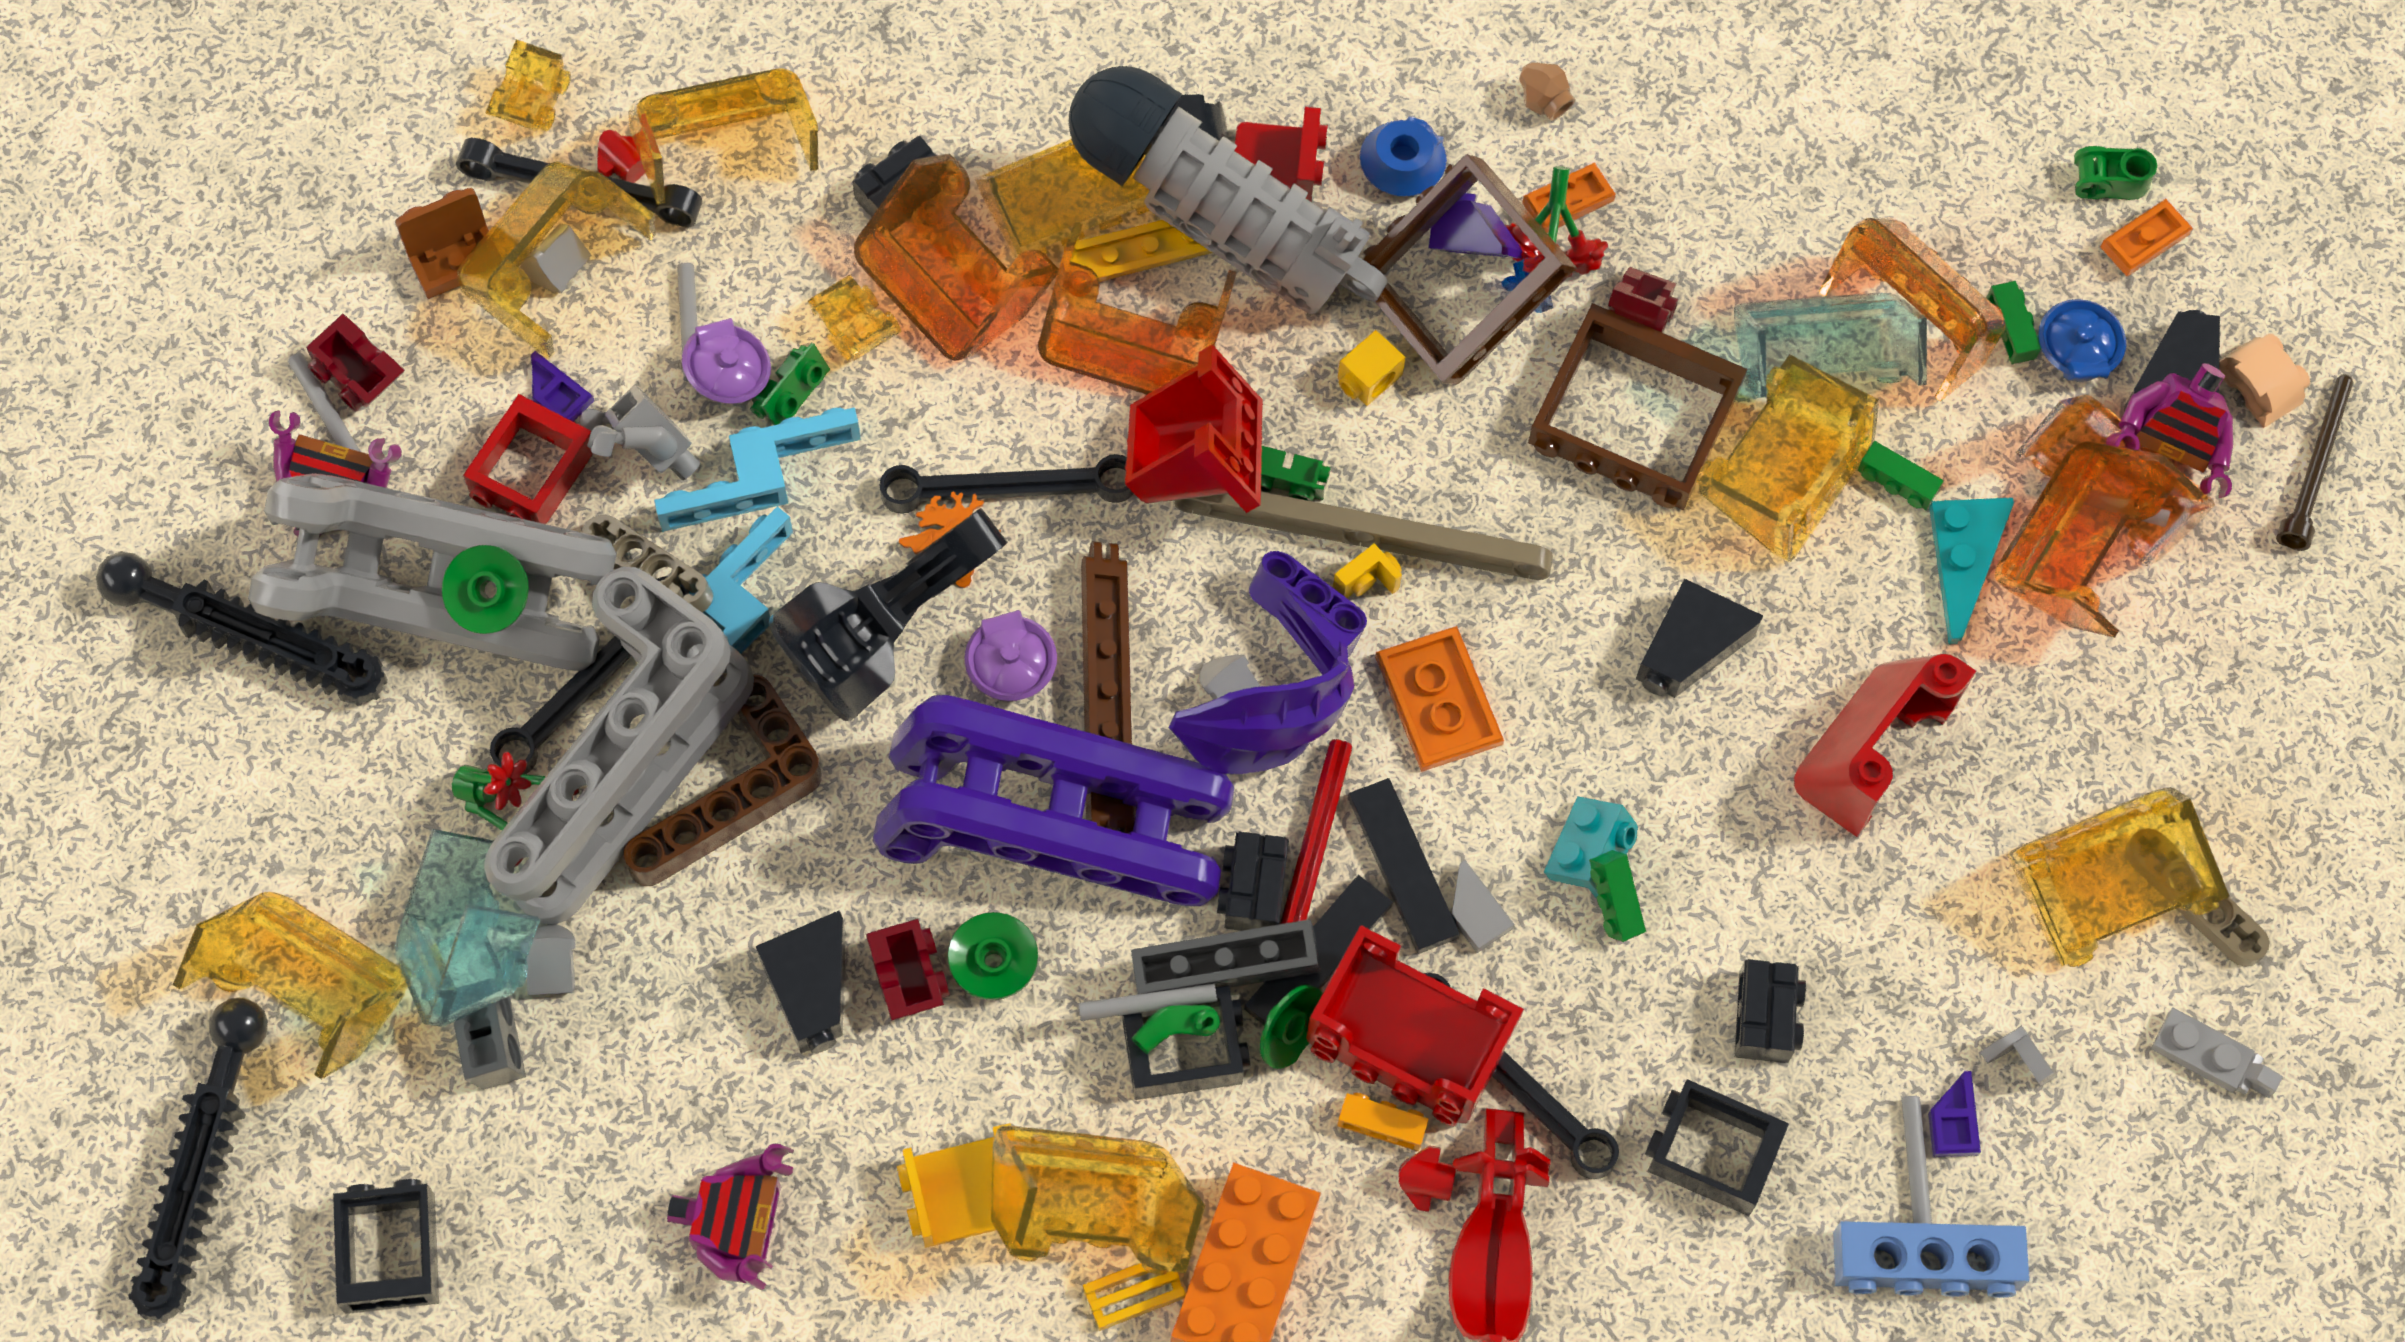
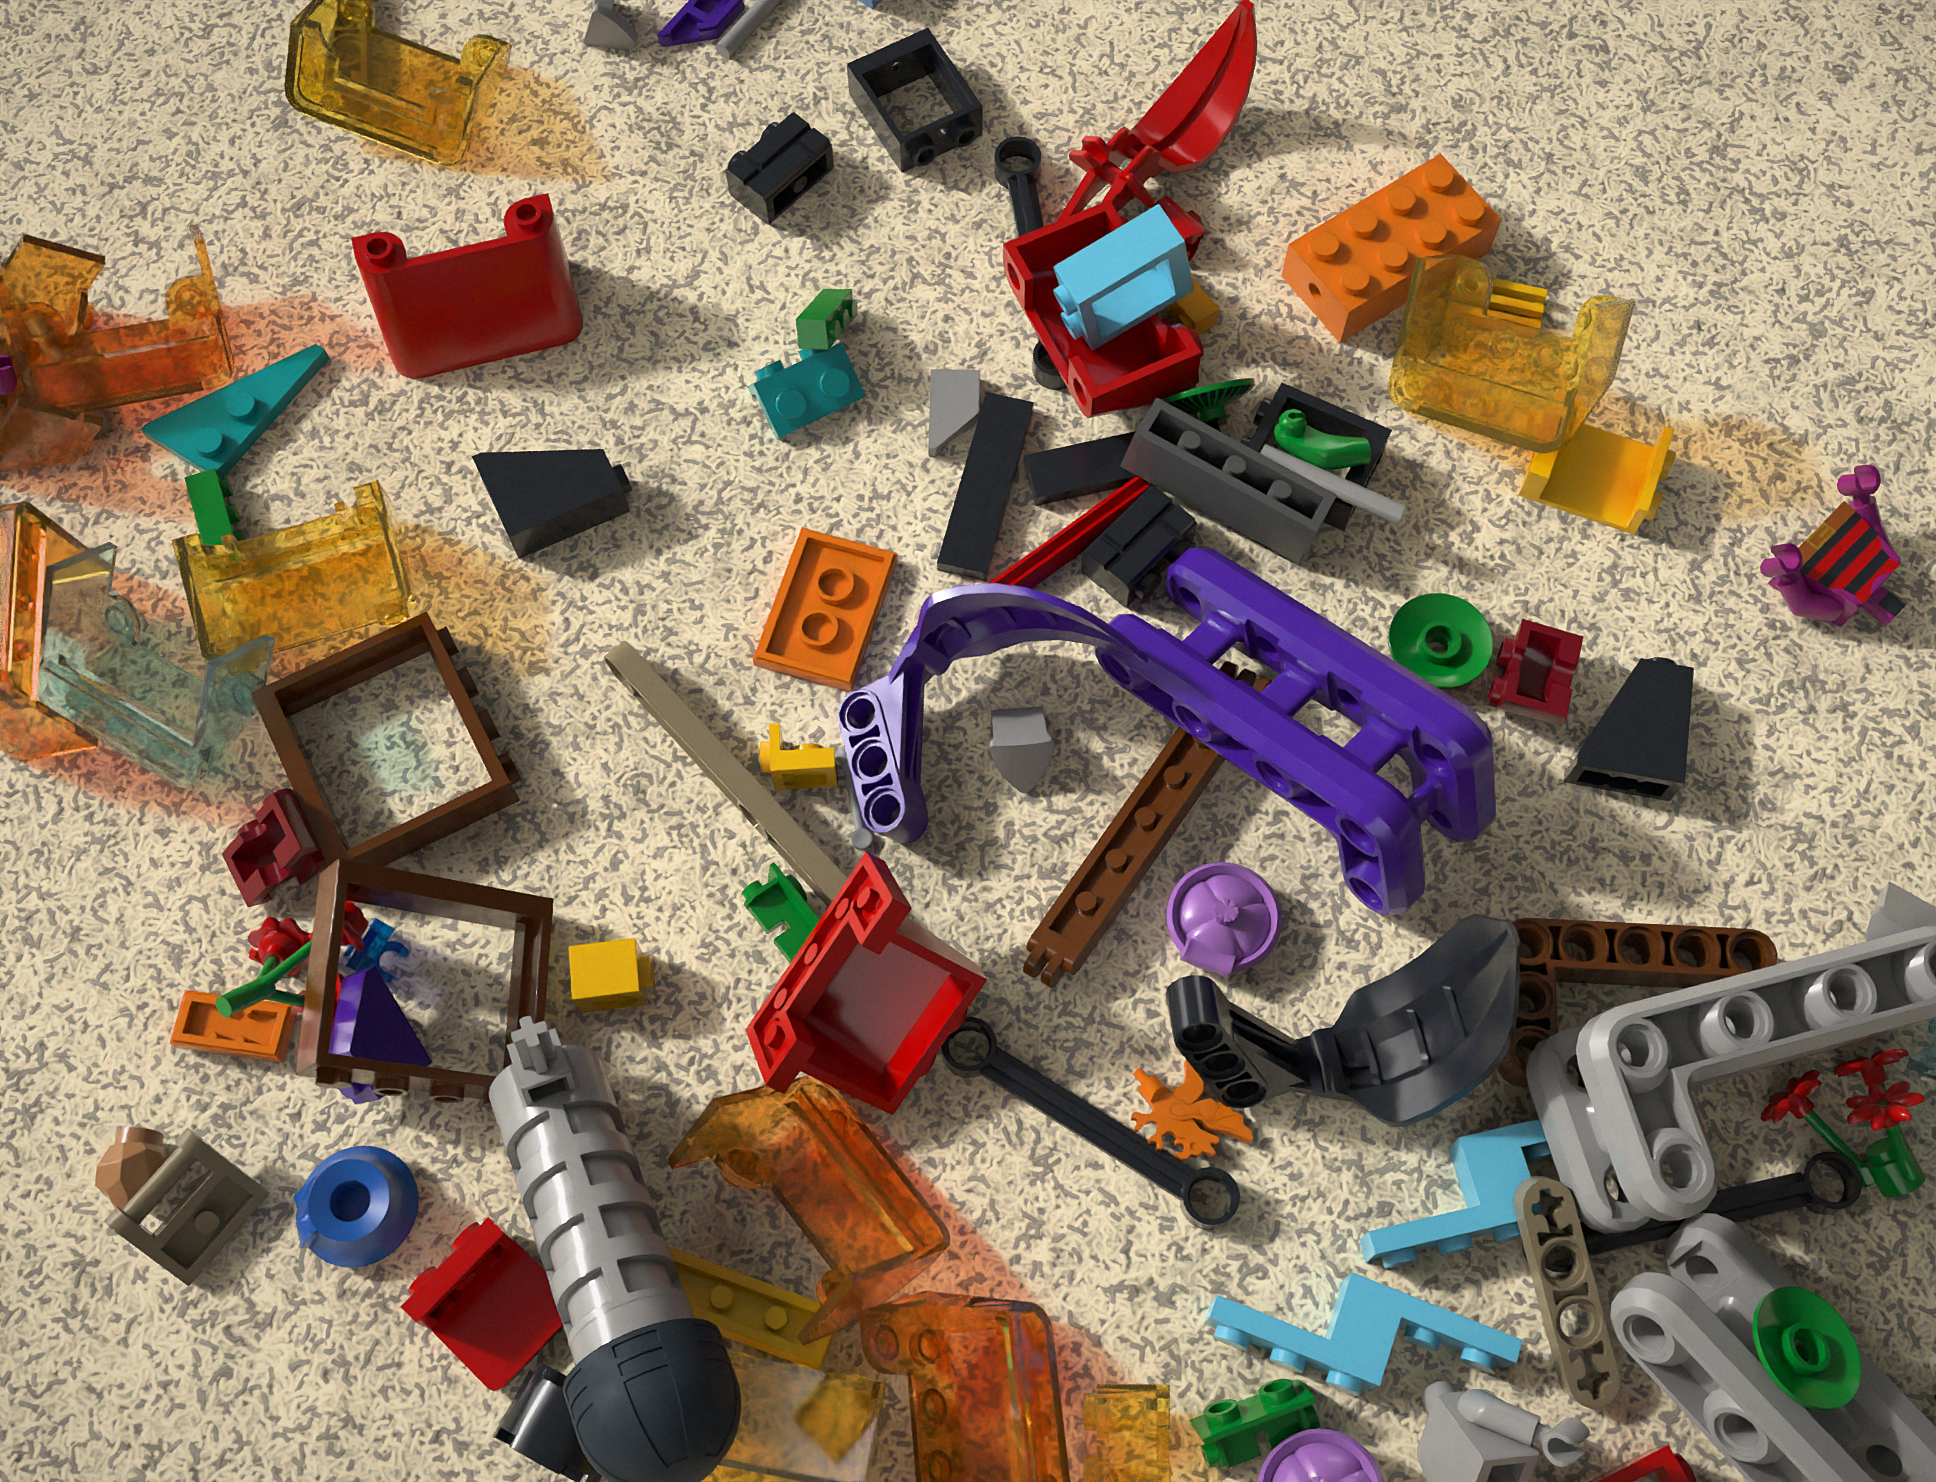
camera: 140 degrees left, 0 degrees up
(1412, 1042) = (1123, 278): none -> medium azure window
(1483, 90) = (201, 1220): none -> dark tan plate

